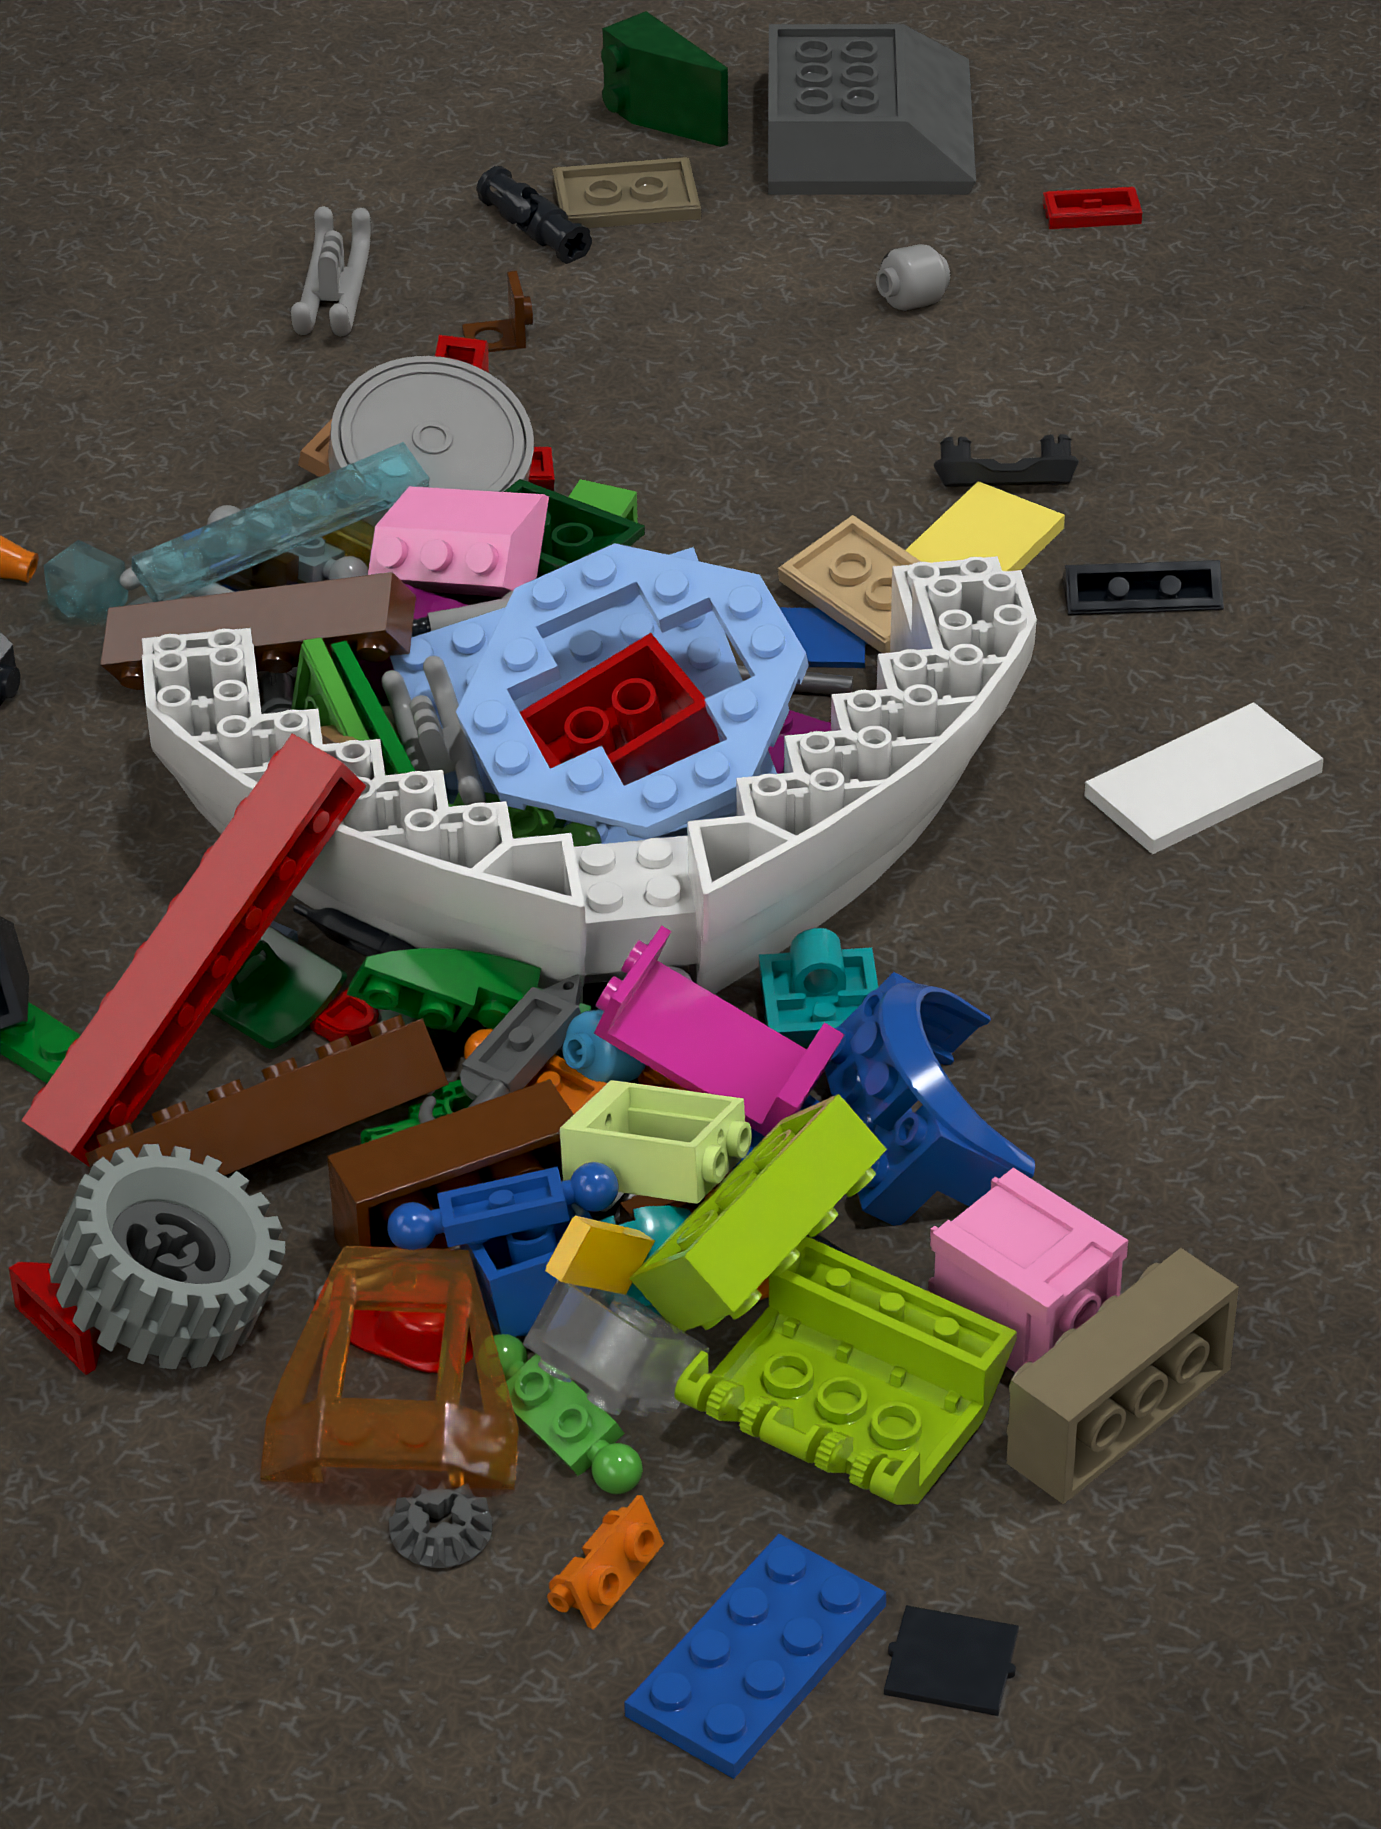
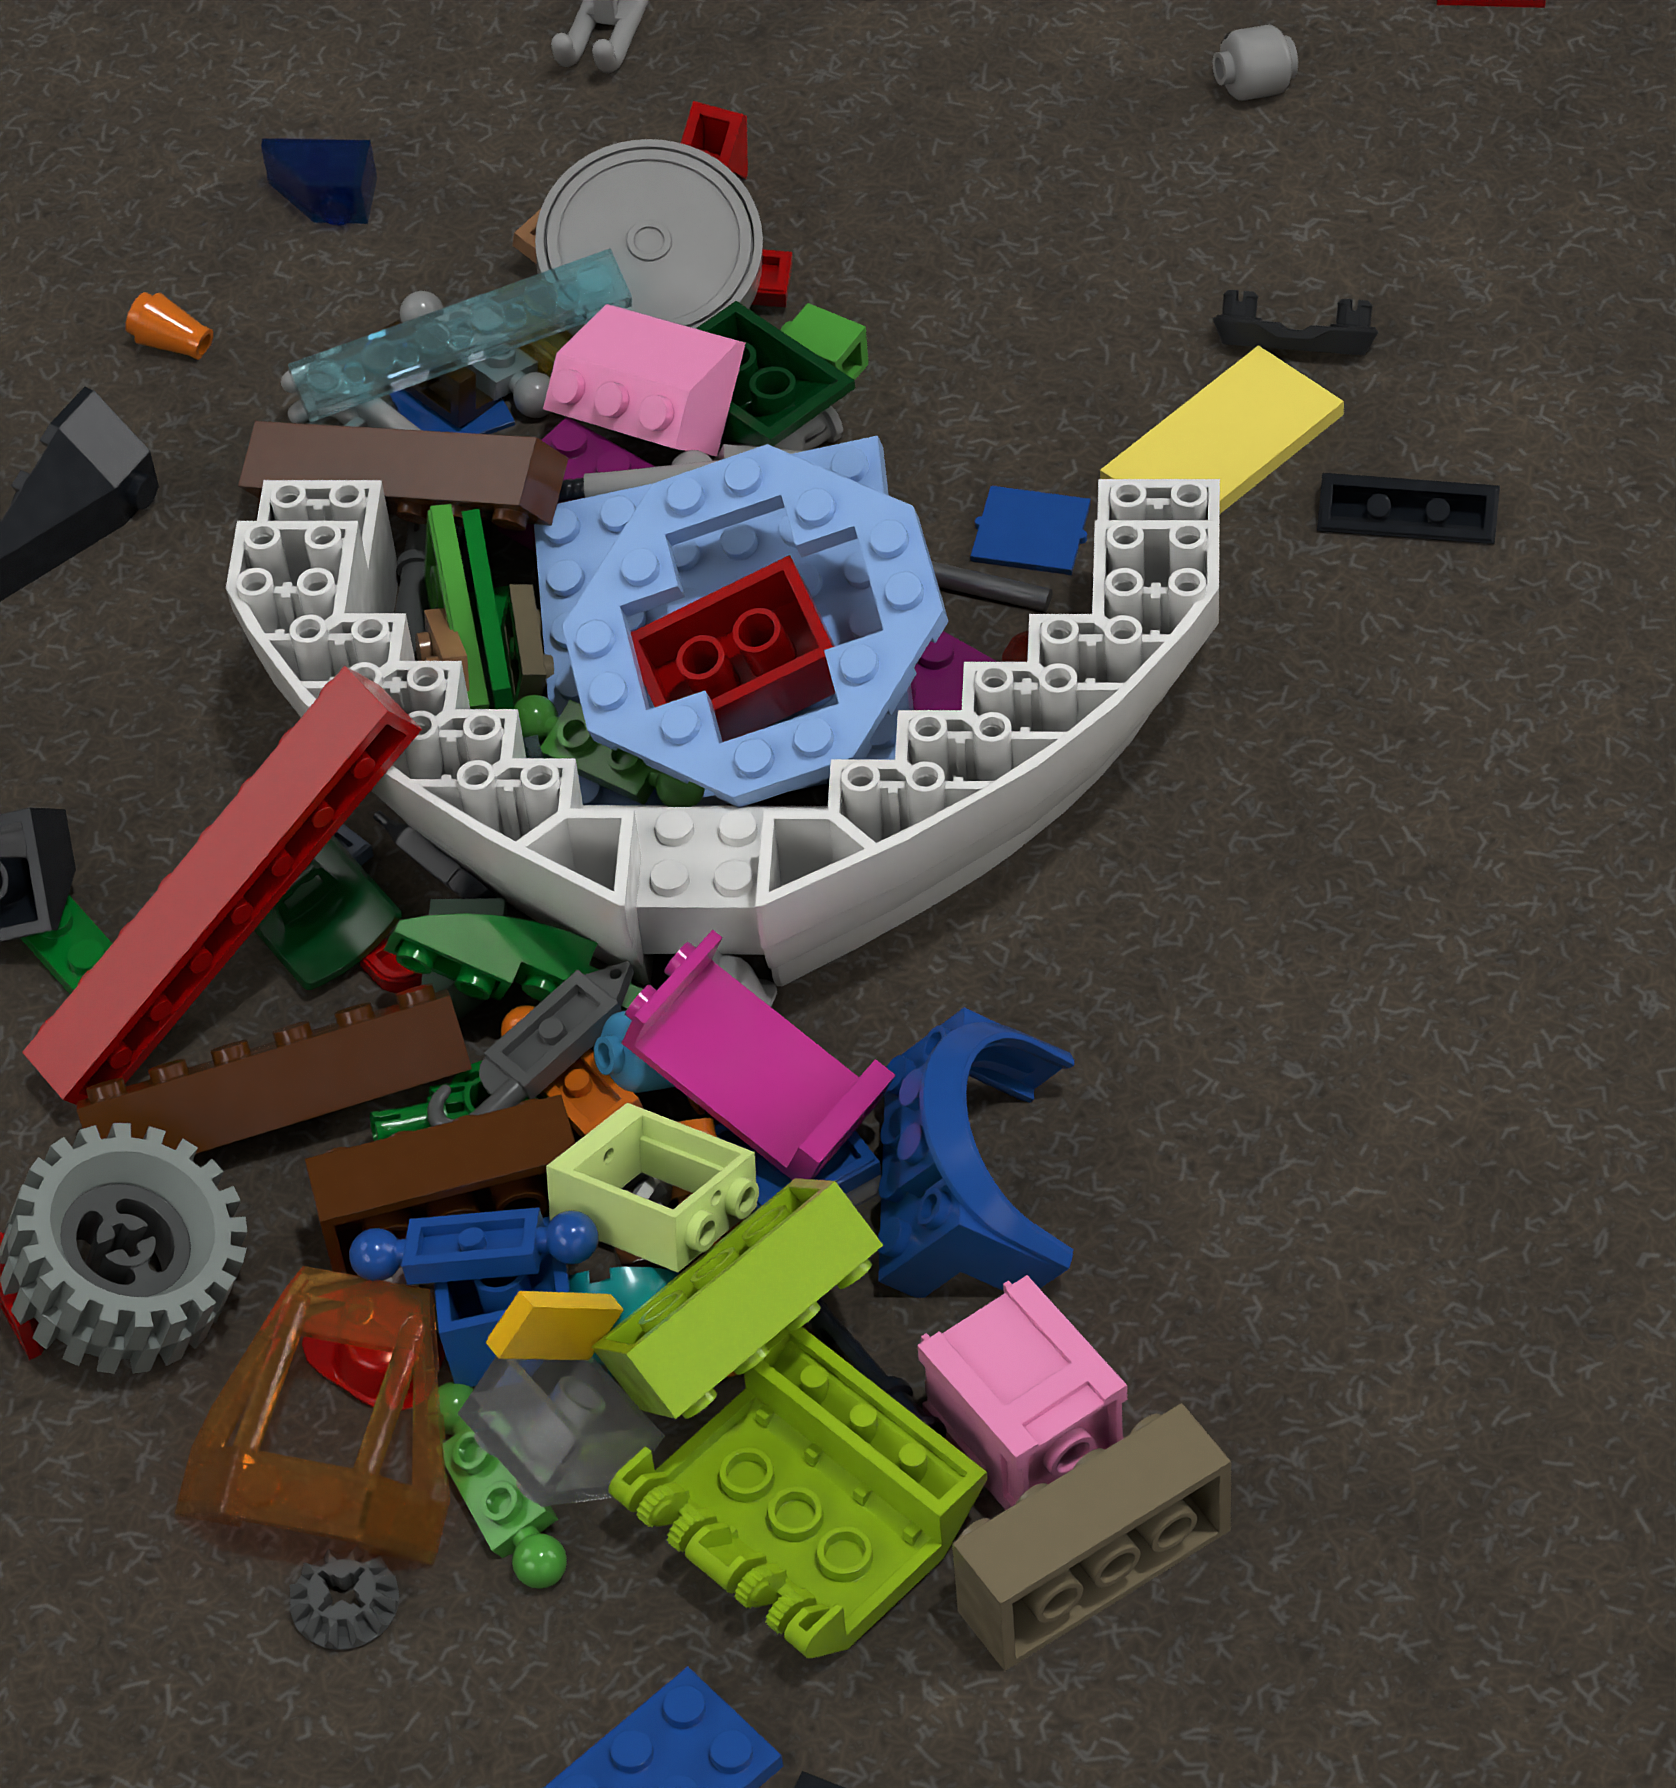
camera: 15 degrees right, 10 degrees up
(85, 582) = (249, 373): clear light blue brick -> none
(106, 431) = (323, 177): none -> clear blue slope
(422, 735) = (542, 645): light grey piece -> none
(513, 328) = (795, 78): reddish brown bracket -> none
(611, 1564) = (512, 1668): orange hinge -> none
(814, 984) = (900, 992): teal plate -> none
(850, 578) = (1074, 448): tan tile -> none
(1203, 777) = (1408, 767): white tile -> none

